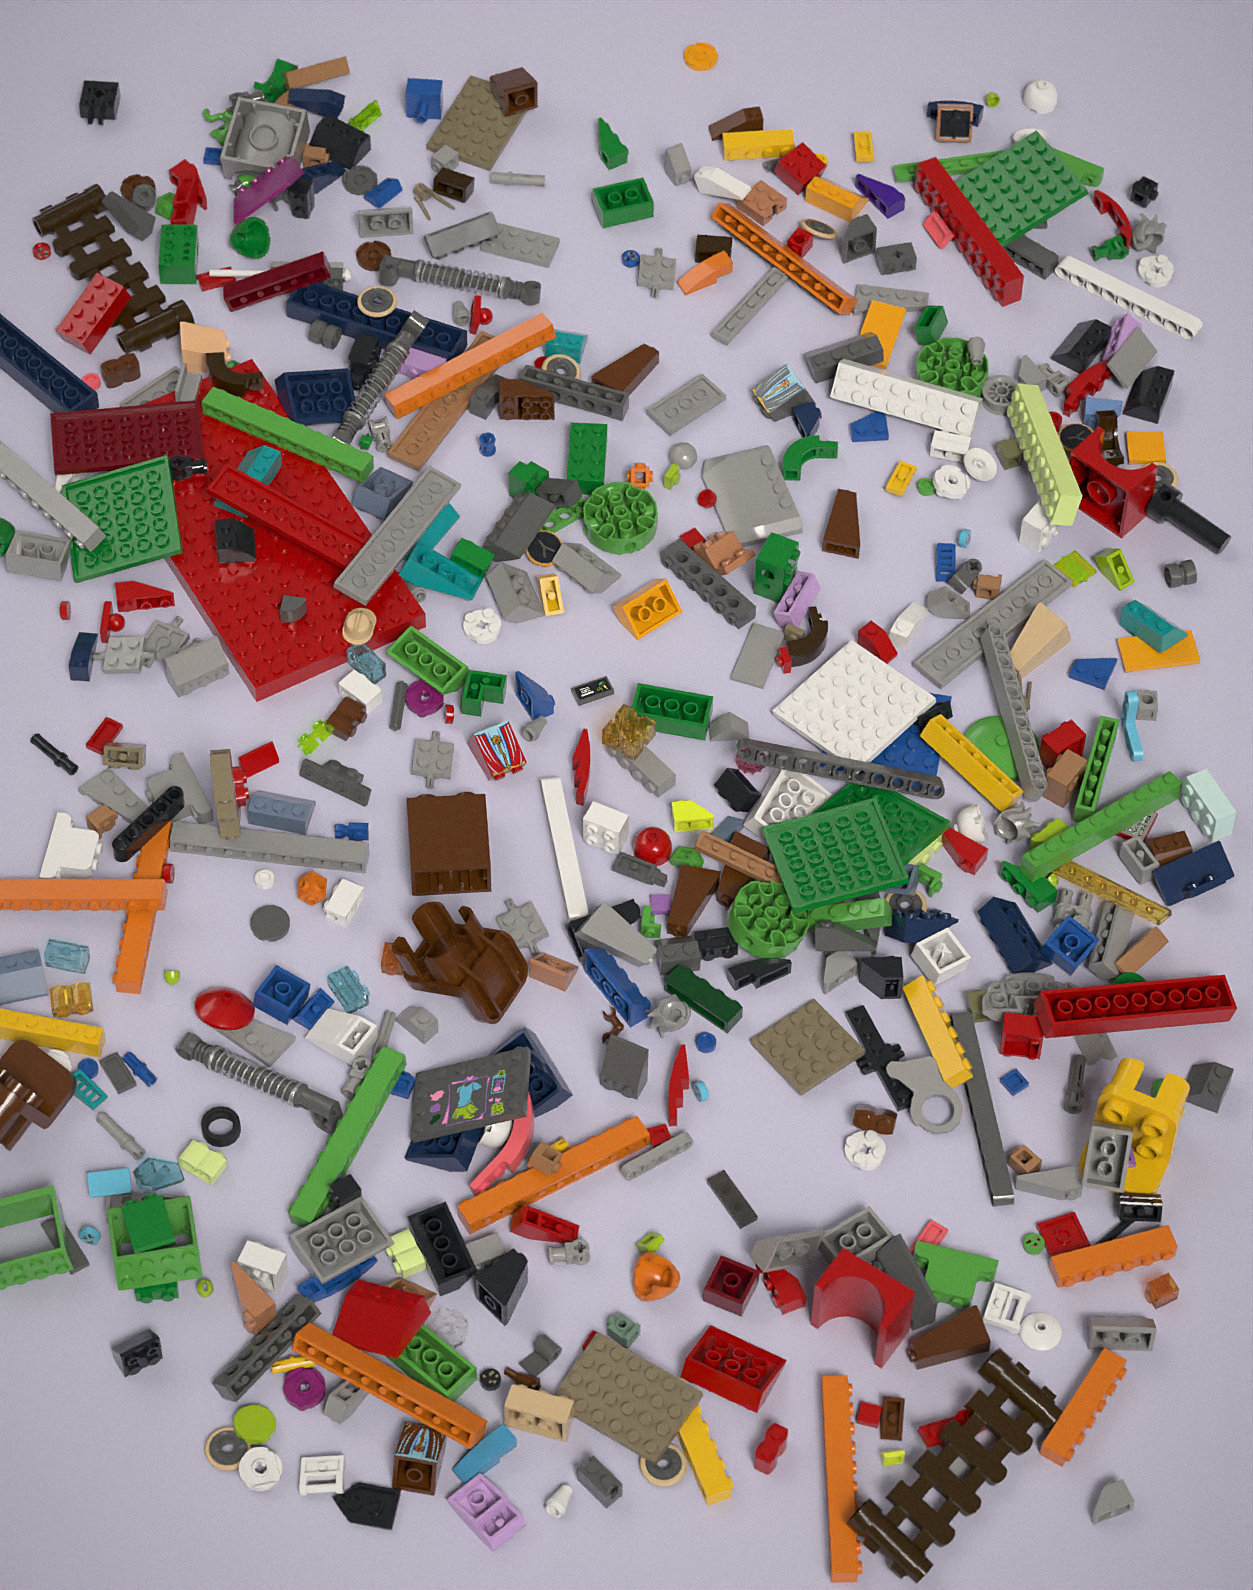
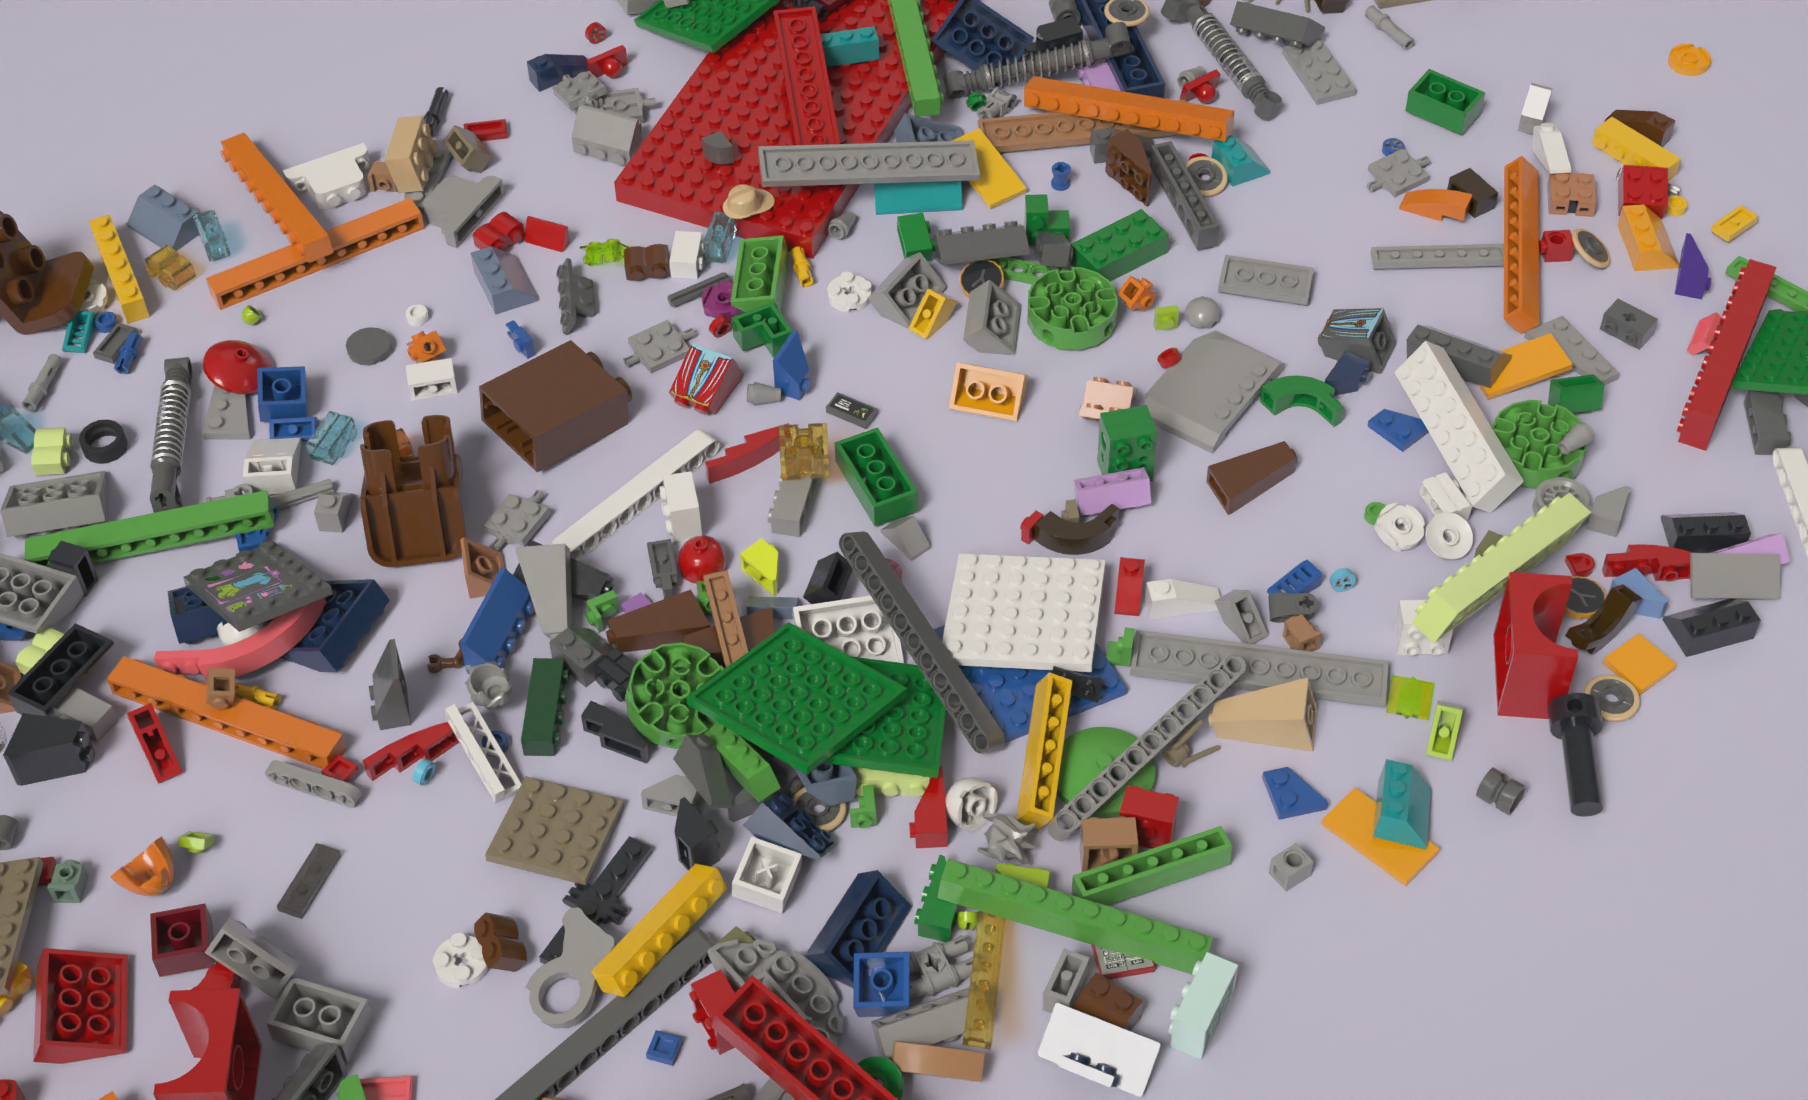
camera: 55 degrees right, 5 degrees down
(110, 787) = (411, 154): none -> tan brick
(140, 596) = (652, 63): red slope -> none
(148, 824) = (393, 198): black beam -> none
(168, 873) = (364, 249): red tile -> none
(224, 794) = (430, 197): dark tan arch -> none
(235, 541) = (755, 73): black slope -> none
(260, 1181) = (55, 504): none -> light grey slope
(271, 847) = (453, 297): light grey brick -> none
(436, 572) = (871, 223): teal slope -> none
(436, 637) = (801, 267): none -> yellow pin
(466, 476) = (997, 179): none -> yellow tile
(570, 1253) = (137, 782): light grey connector -> none
(612, 151) = (1501, 59): green slope -> none
(628, 370) = (1254, 218): reddish brown slope -> none
(691, 538) = (1112, 373): red tile -> none
(708, 584) = (1065, 420): dark grey brick -> none
(717, 1049) = (466, 738): none -> white fence
(757, 656) = (1011, 508): light grey piece -> none
(859, 239) = (1608, 277): dark grey slope -> none
(901, 478) = (1361, 486): yellow plate -> none
(924, 676) = (1121, 652): none -> bright green bracket
(1056, 381) = (1632, 530): light grey connector -> none
(1127, 719) = (1249, 862): medium azure beam -> none

